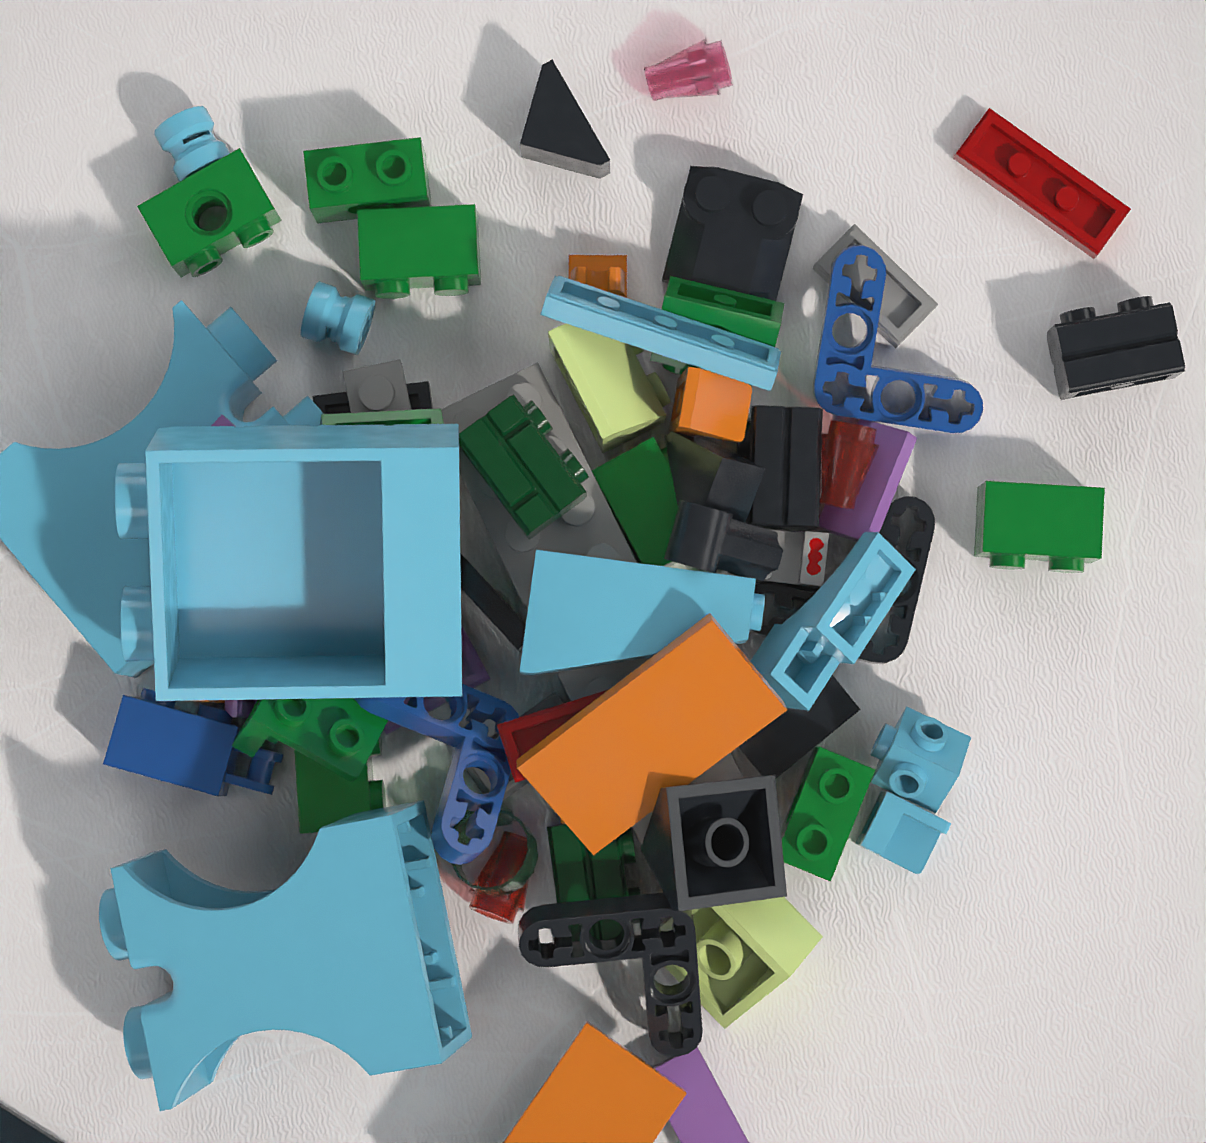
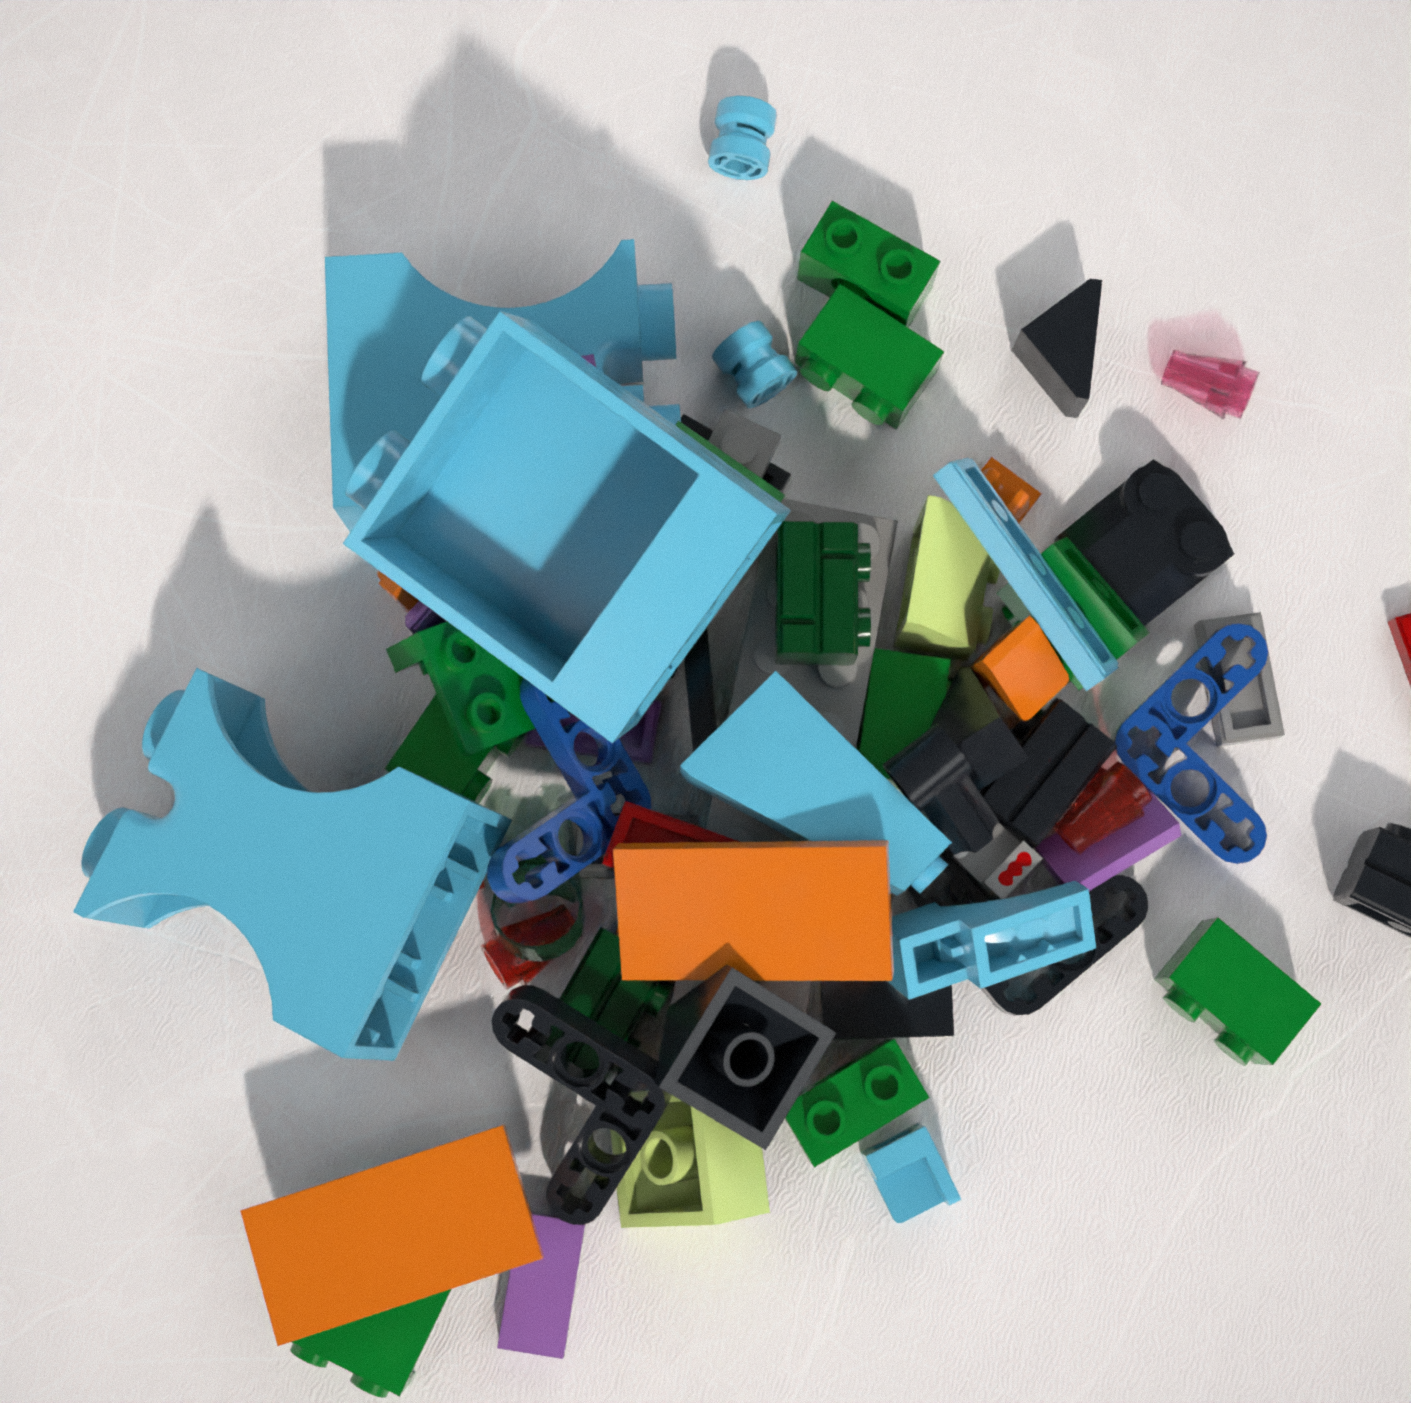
camera: 35 degrees right, 5 degrees down
(177, 211) = (692, 177): green brick -> none
(184, 746) = (345, 622): blue brick -> none
(919, 758) = (975, 1119): medium azure brick -> none

